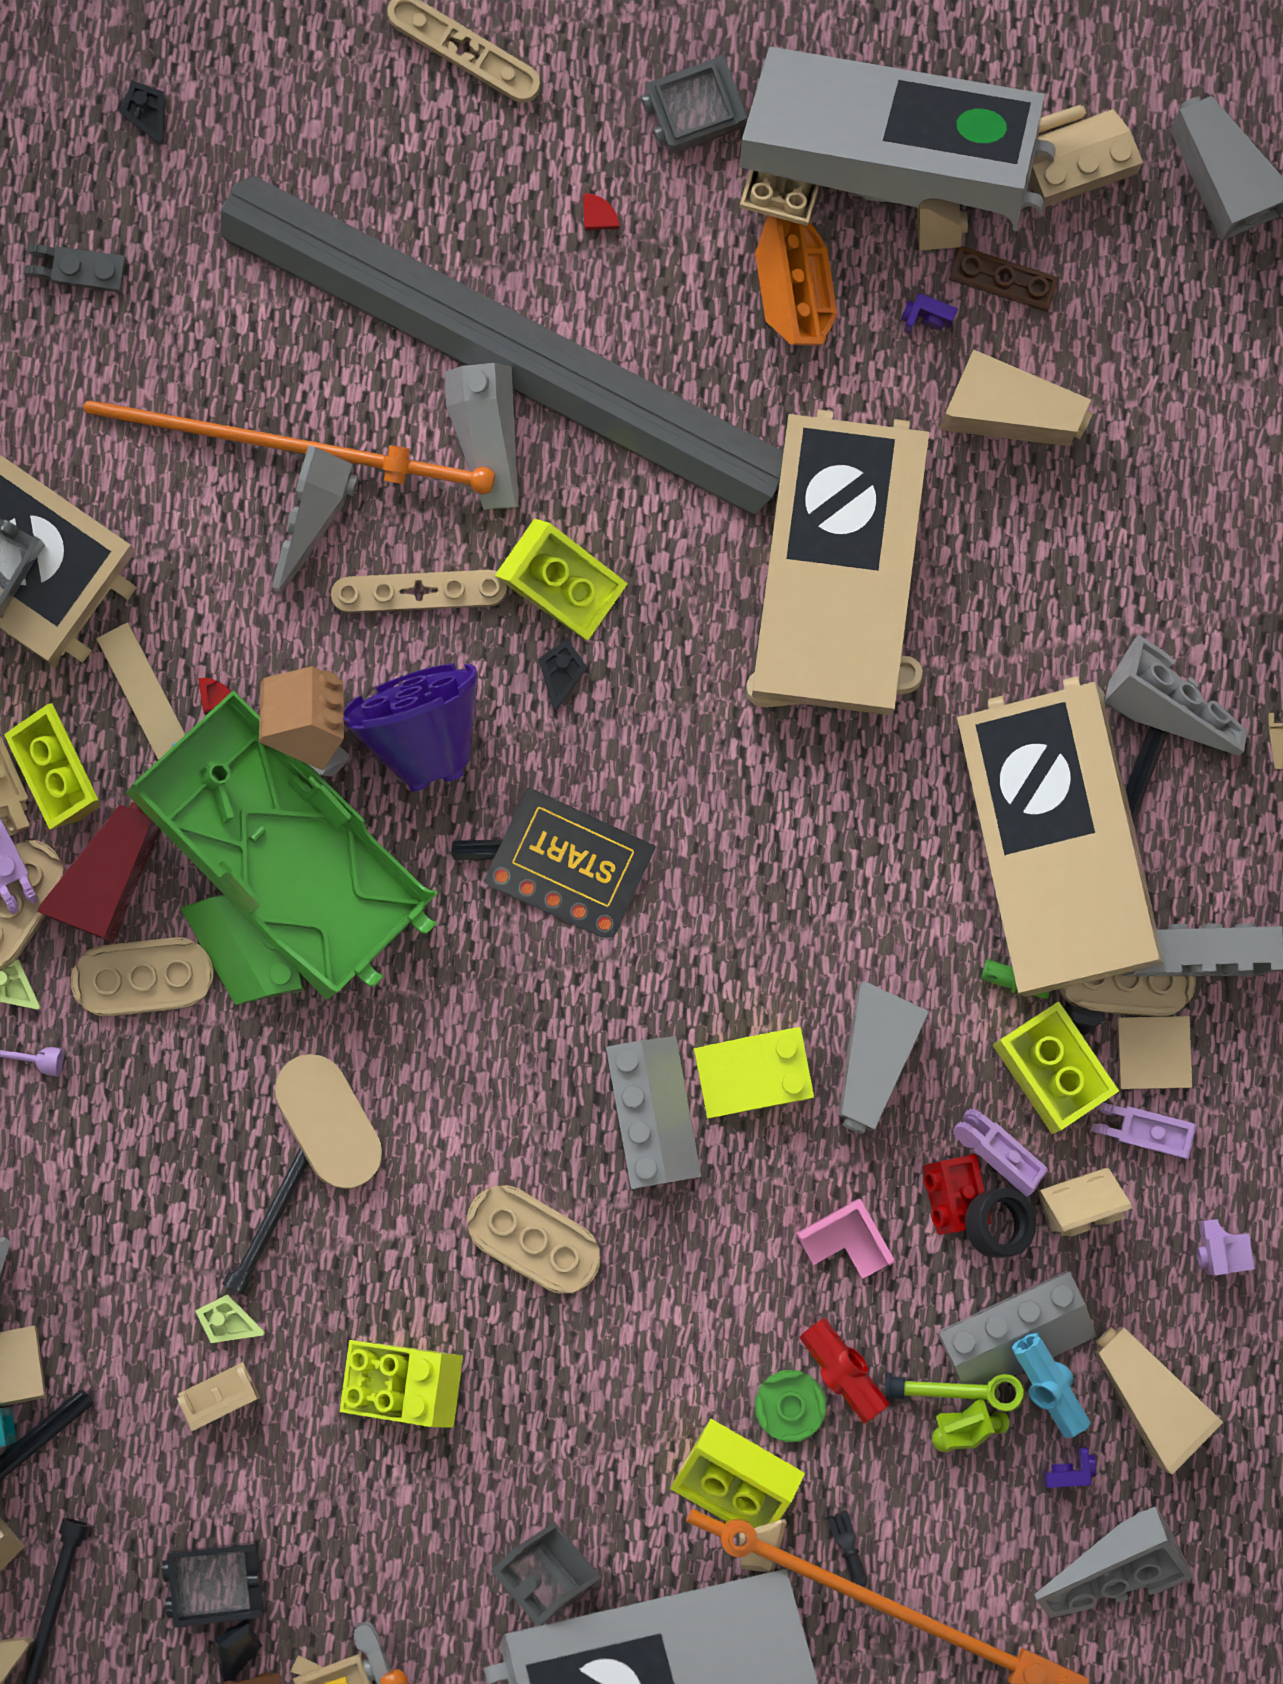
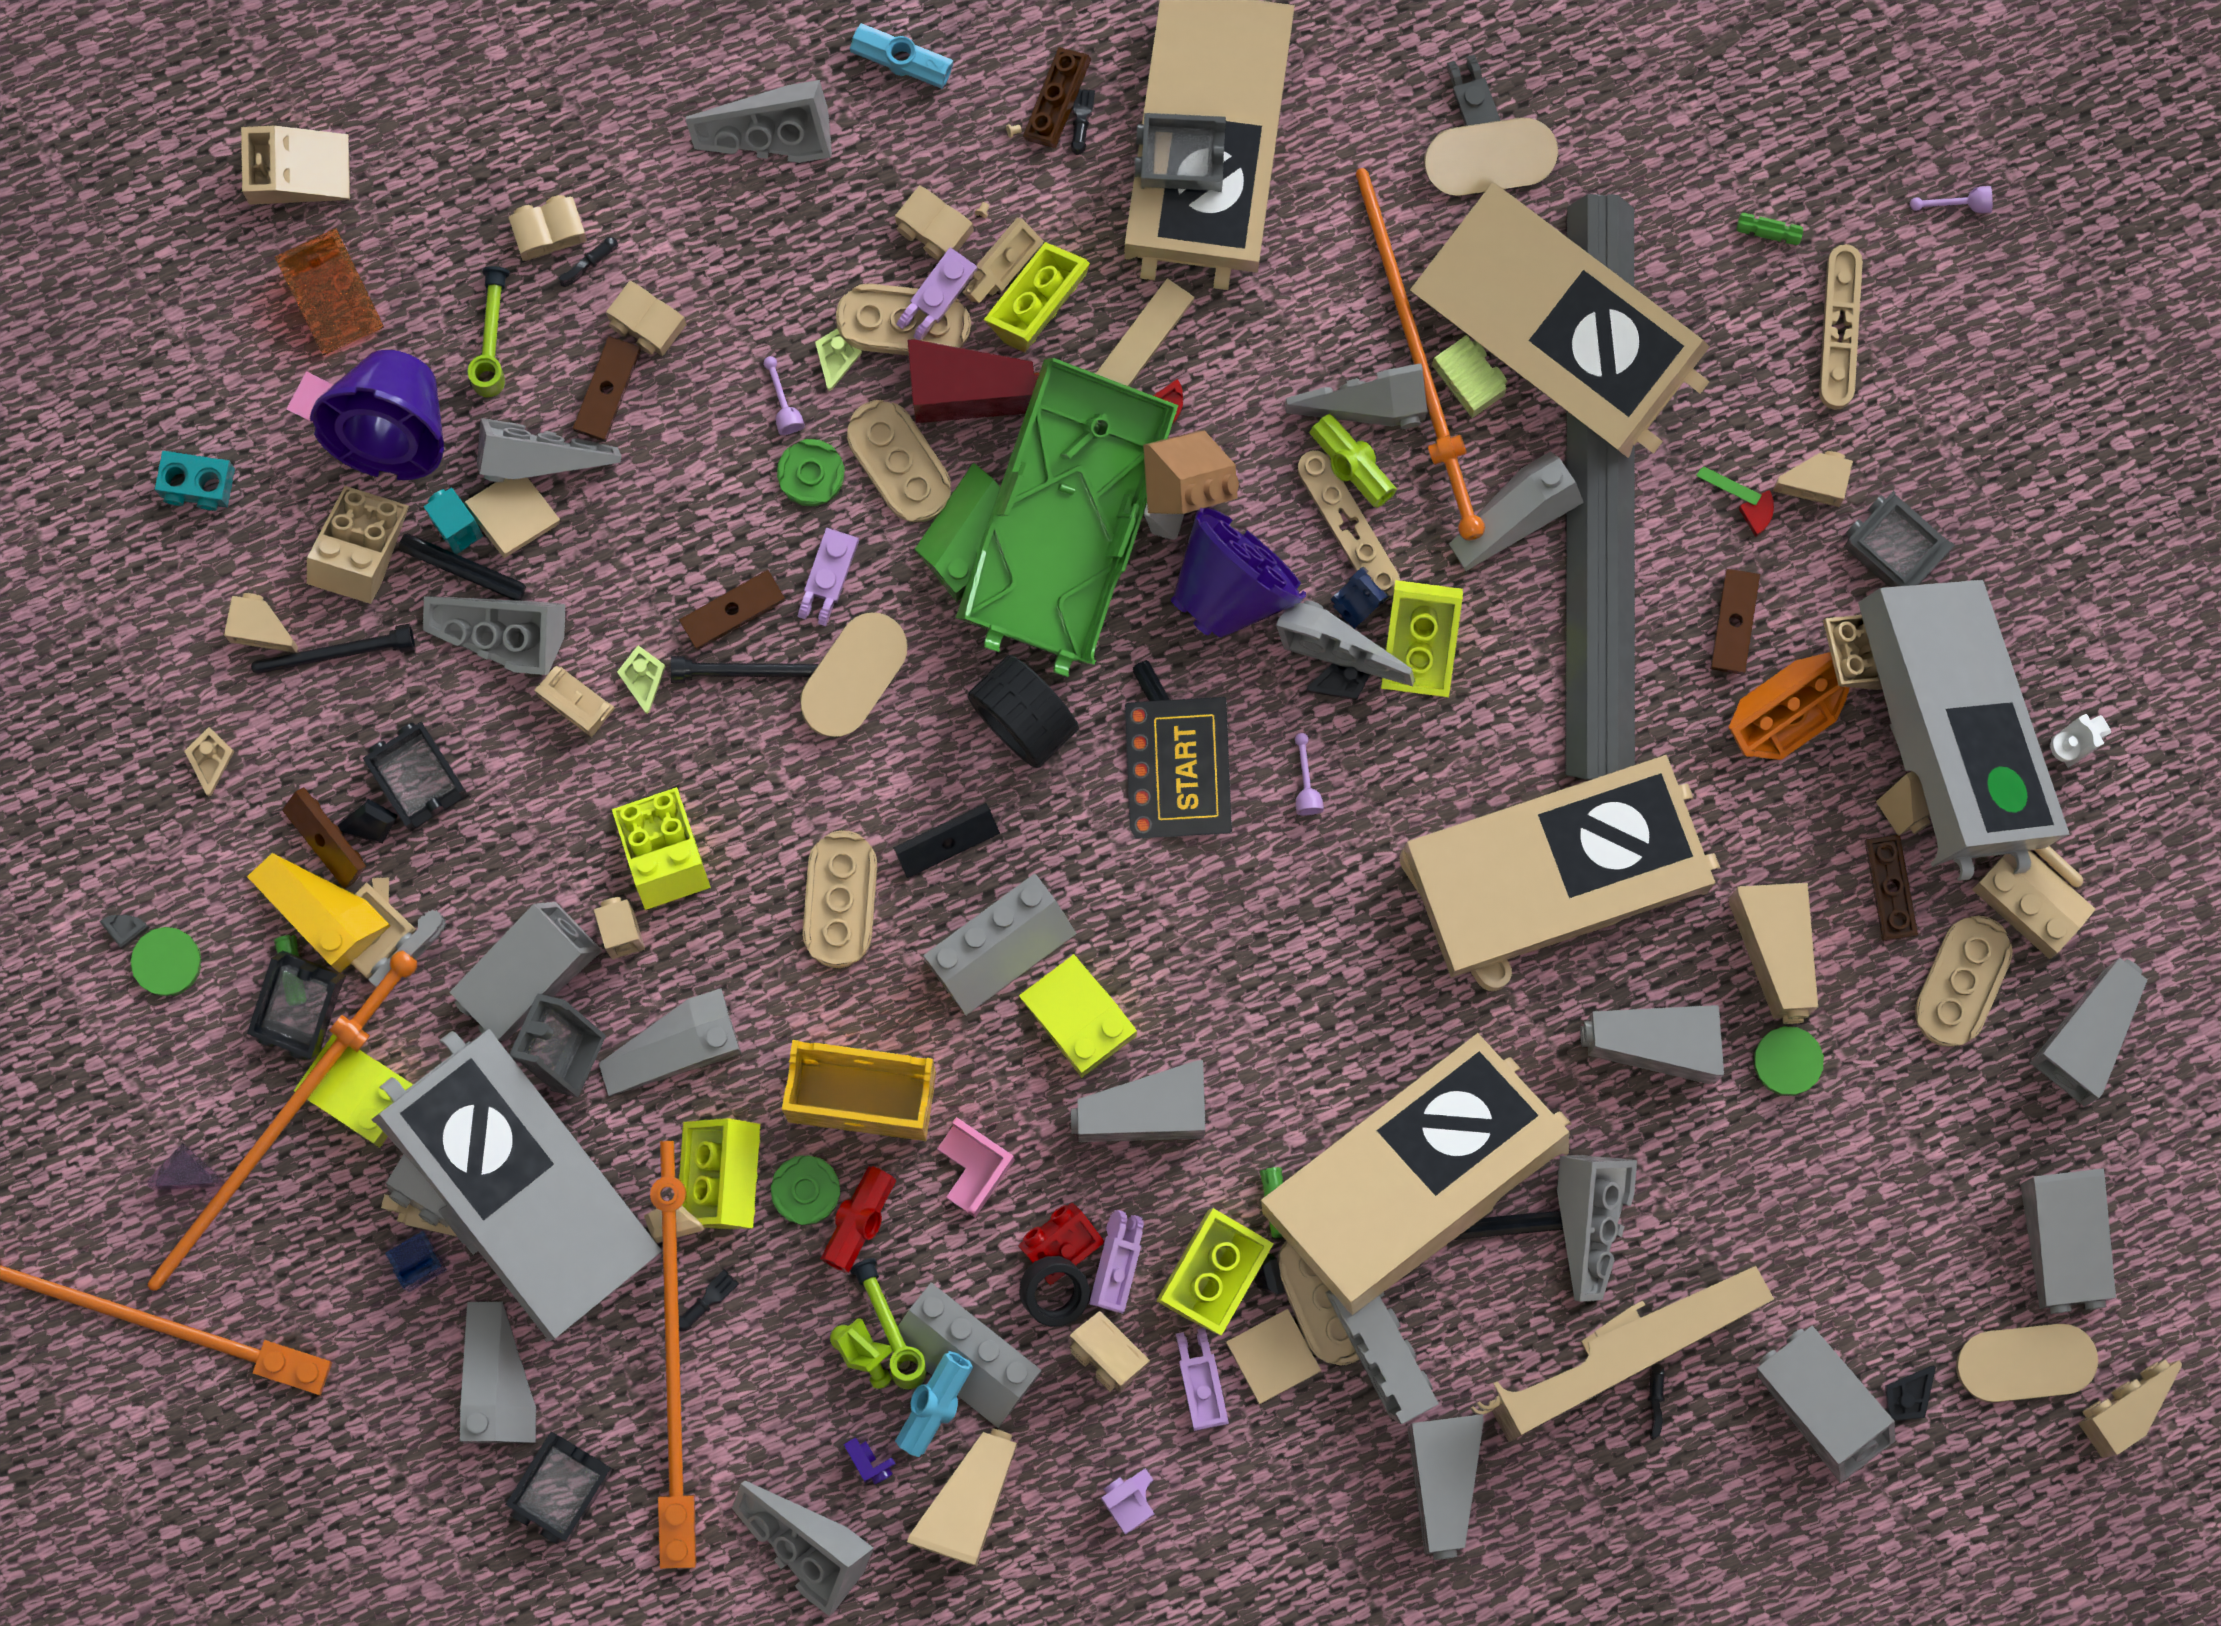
camera: 65 degrees right, 5 degrees down
(120, 1426) = (510, 632): none -> light grey wedge
(121, 1070) = (810, 484): none -> bright green tile
(136, 279) = (1500, 152): none -> tan tile
(145, 109) = (1642, 91): black piece -> none
(205, 1181) = (751, 599): none -> reddish brown tile
(216, 1096) = (828, 573): none -> lavender hinge
(332, 296) = (1562, 320): none -> tan piece
(336, 406) = (1470, 375): none -> yellowish green brick
(337, 63) = (1769, 229): none -> bright green axle
(362, 556) = (1353, 461): none -> lime piece
(449, 981) = (1023, 711): none -> black tyre
(455, 1569) = (530, 959): none -> light grey slope
(460, 1461) = (618, 928): none -> tan brick
(494, 617) = (1358, 598): none -> dark blue piece
(517, 666) = (1321, 635): none -> light grey wedge
(529, 1112) = (946, 840): none -> black tile
(560, 227) = (1729, 485): none -> bright green piece
(593, 1453) = (681, 1041): none -> light grey wedge
(597, 142) = (1818, 479): none -> tan slope
(659, 759) = (1309, 800): none -> lavender hinge
(674, 274) = (1737, 602): none -> reddish brown tile
(732, 1312) = (859, 1090): none -> yellow gear
(935, 313) = (1825, 842): dark purple bracket -> none
(957, 39) = (2079, 739): none -> white hips
(1048, 549) = (1662, 1040): none -> light grey slope
(1115, 452) = (1788, 1061): none -> bright green tile
(1120, 259) = (1963, 981): none -> tan tile

